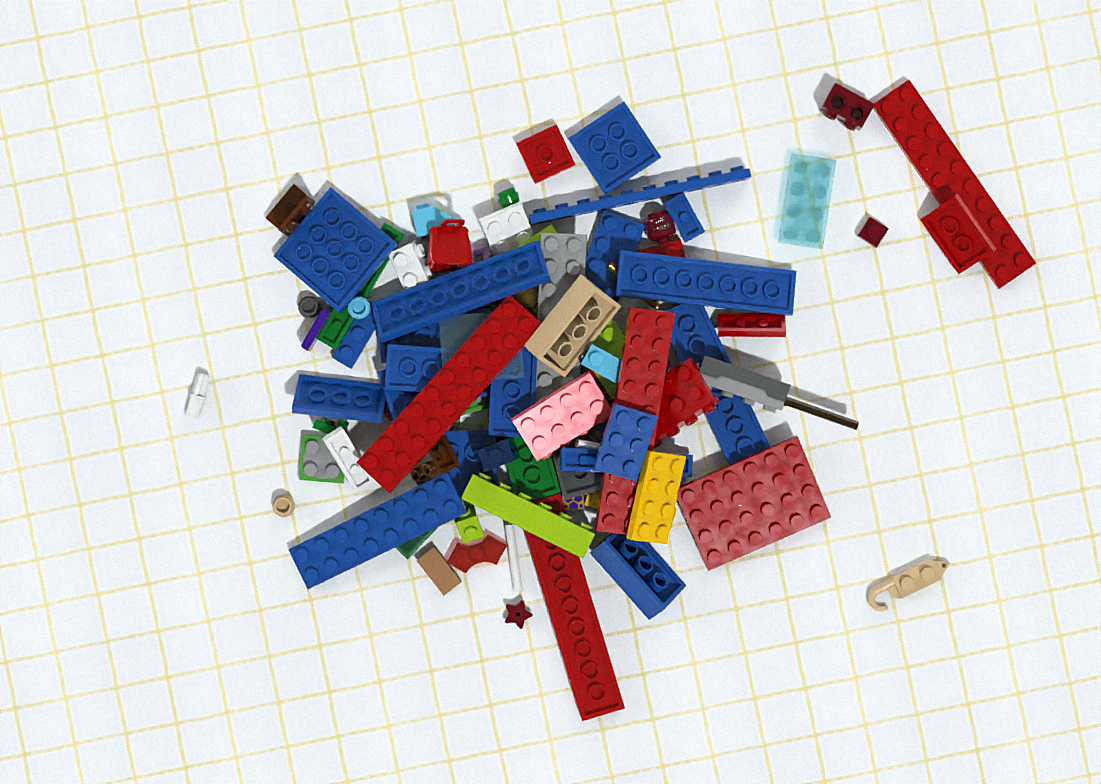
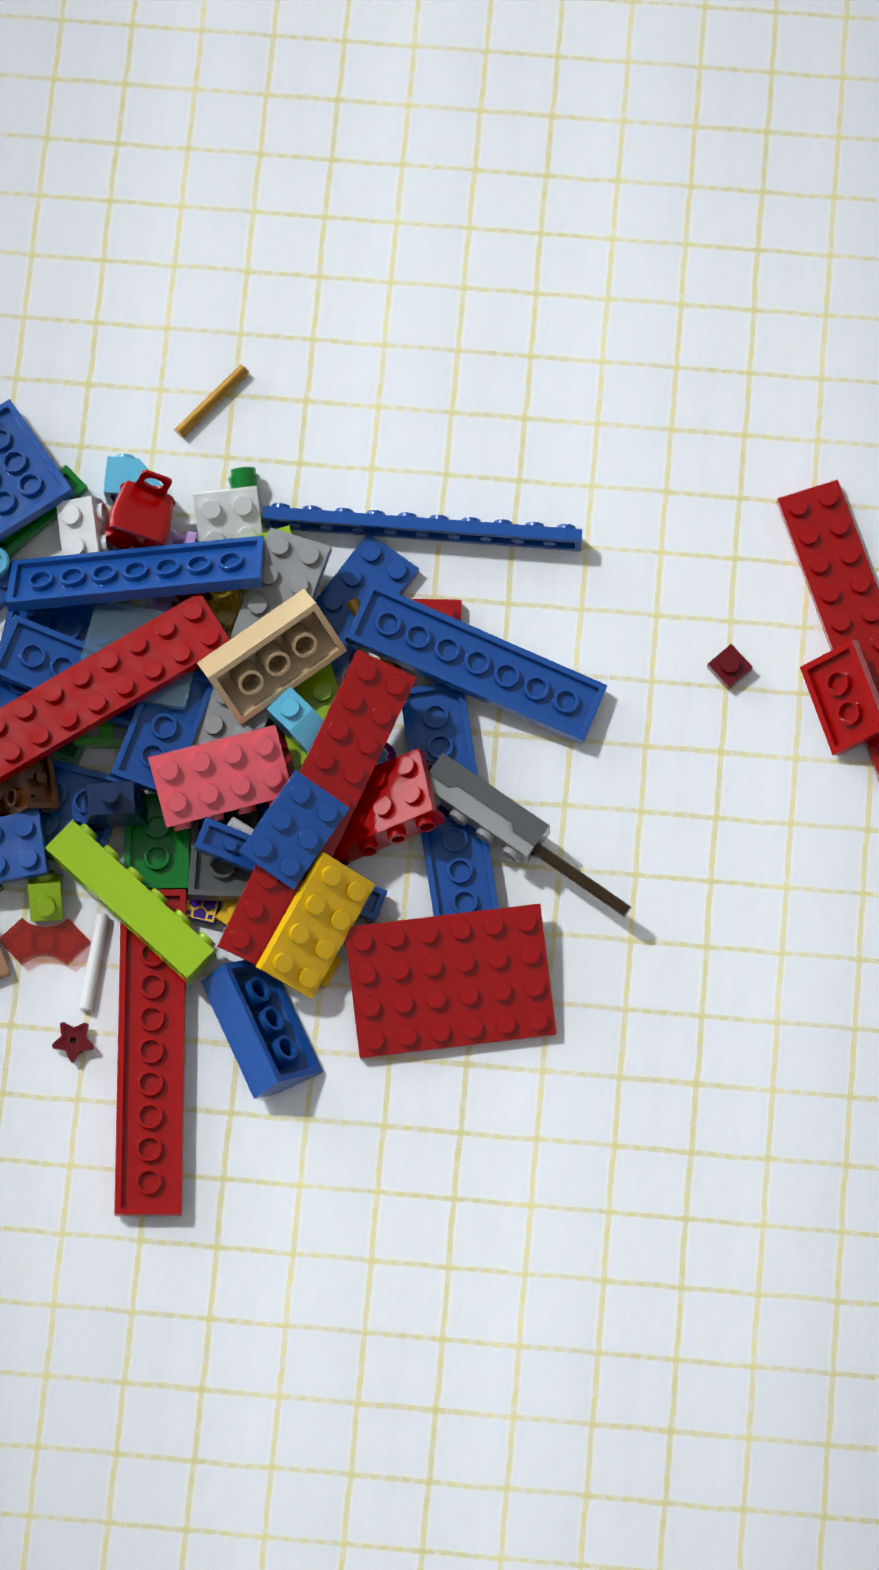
camera: 20 degrees right, 15 degrees down
(460, 160) = (211, 401): none -> pearl gold bar
(545, 154) = (313, 439): red plate -> none
(614, 148) = (408, 457): blue plate -> none
(660, 227) = (437, 575): dark red head -> none
(684, 217) = (474, 573): blue plate -> none
(751, 325) = (523, 740): red plate -> none
(807, 201) = (649, 599): clear light blue plate -> none
(849, 101) = (748, 486): dark red brick -> none
(908, 581) = (640, 1158): tan plate -> none

